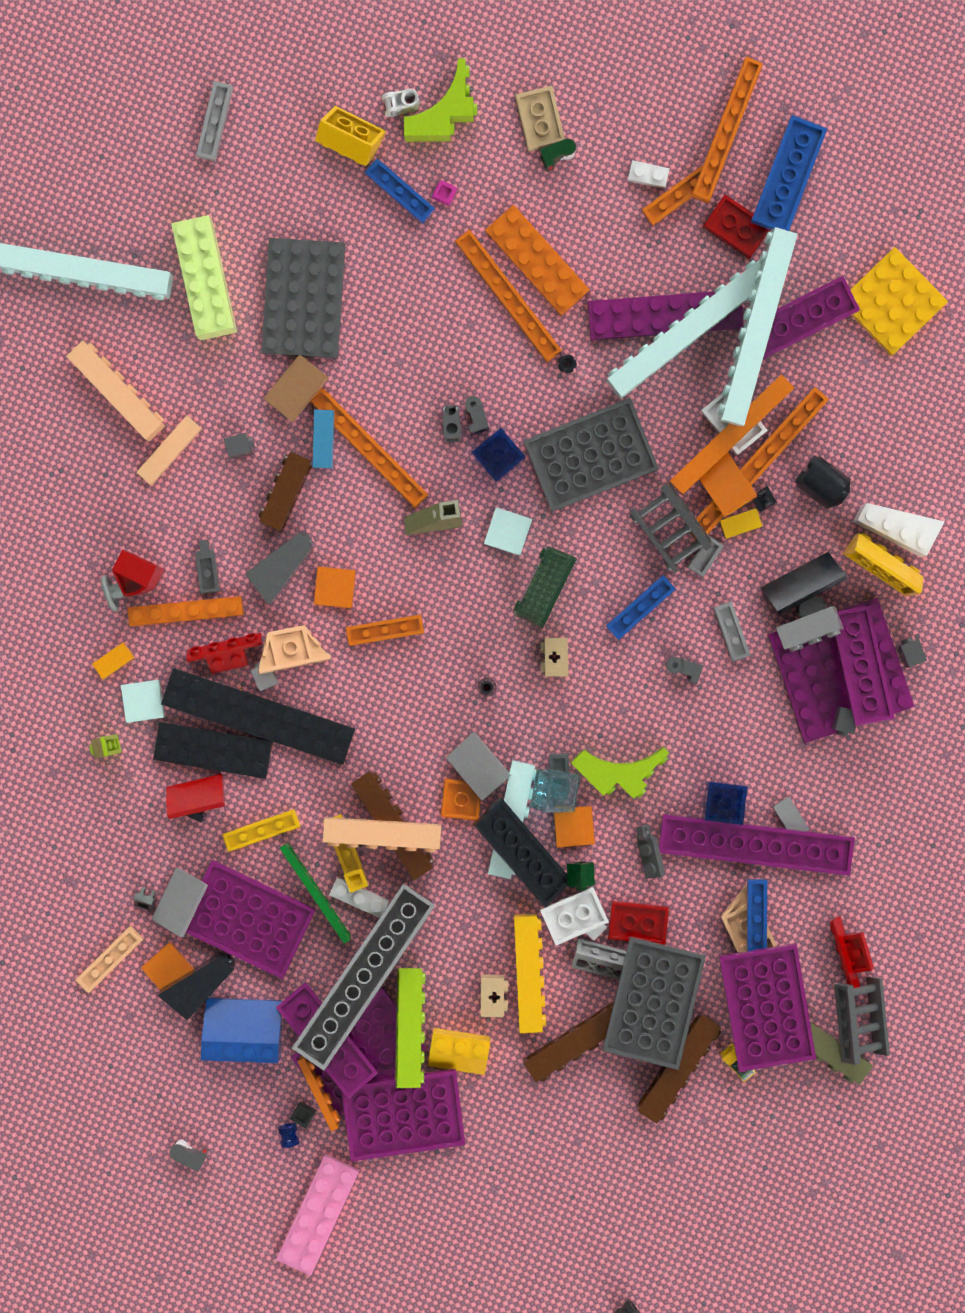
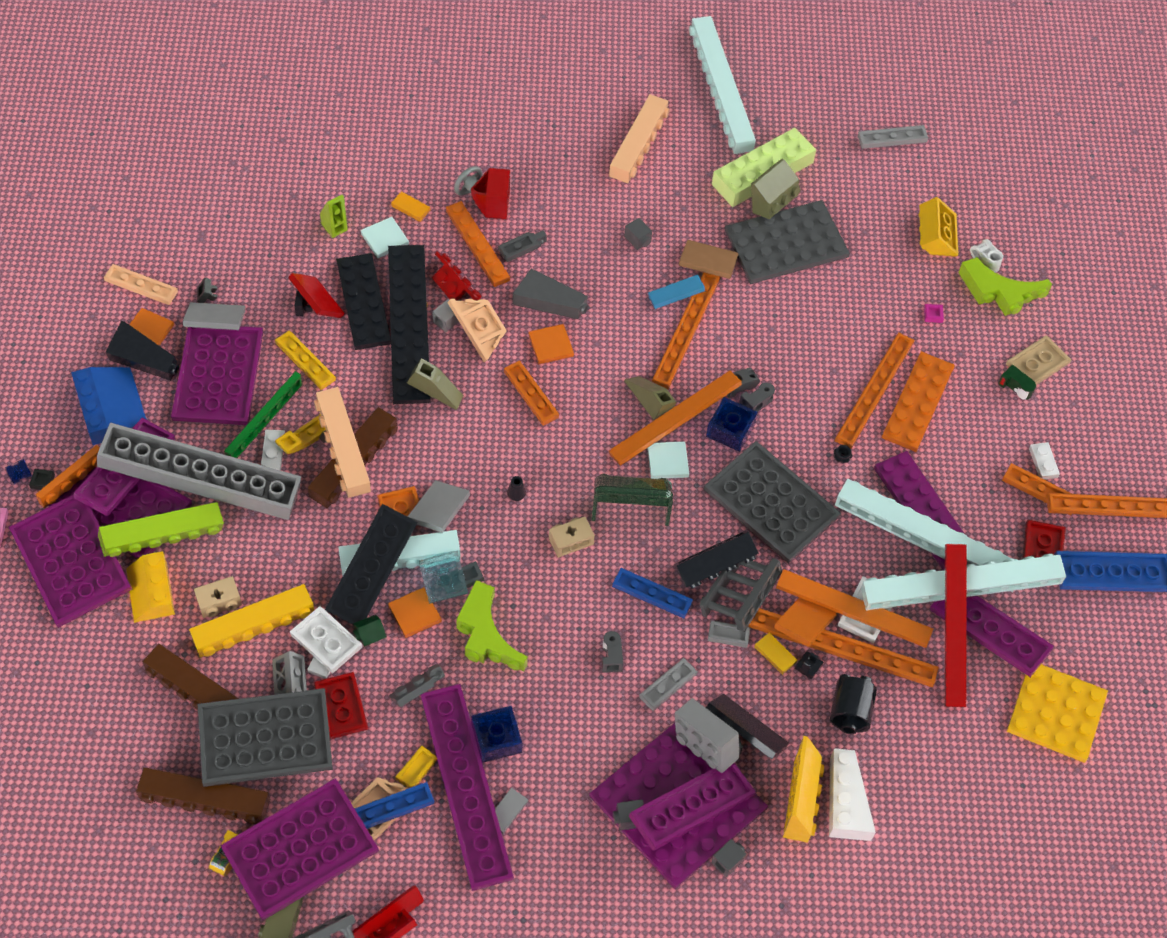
camera: 60 degrees right, 30 degrees down
(169, 450) = (609, 190): light nougat tile -> none
(244, 283) = (774, 189): none -> olive slope
(286, 491) = (616, 279): reddish brown brick -> none
(347, 721) = (433, 382): none -> olive slope
(399, 191) = (915, 279): blue plate -> none
(470, 506) = (675, 417): none -> orange tile
(637, 538) = (716, 559): none -> black slope
(722, 879) = (416, 767): none -> yellow tile
(793, 355) = (955, 624): none -> red tile

